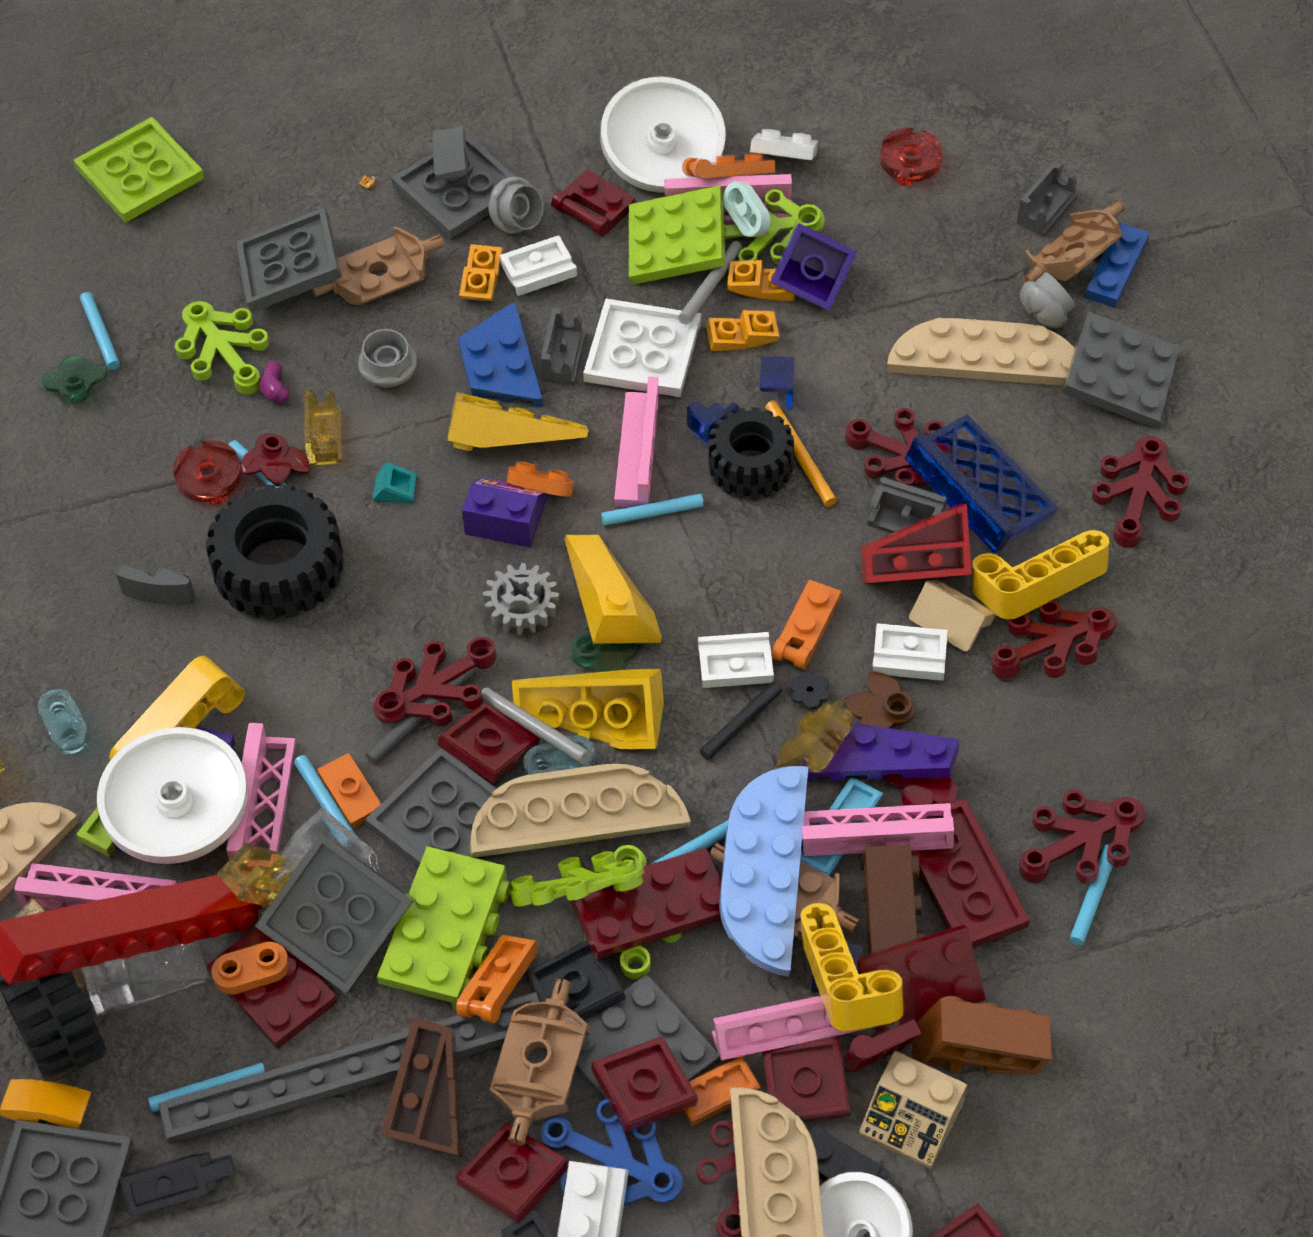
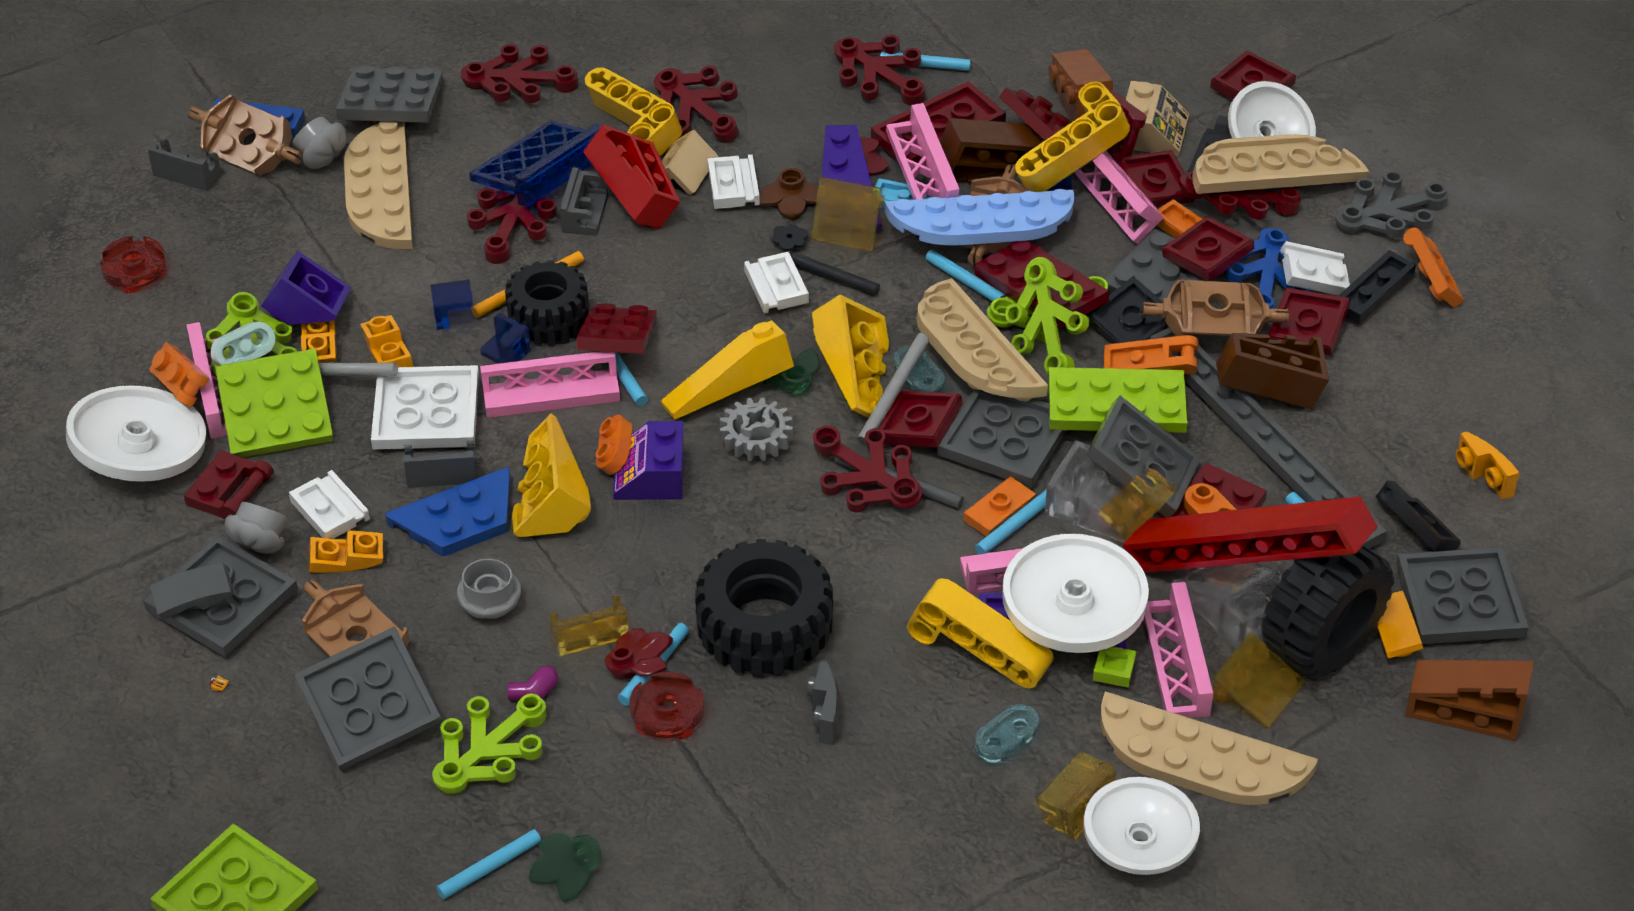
camera: 105 degrees left, 10 degrees down
(394, 484) = (640, 561): teal slope -> none
(688, 500) = (617, 329): none -> dark red plate
(772, 143) = (136, 346): white plate -> none
(806, 624) = (720, 249): orange plate -> none

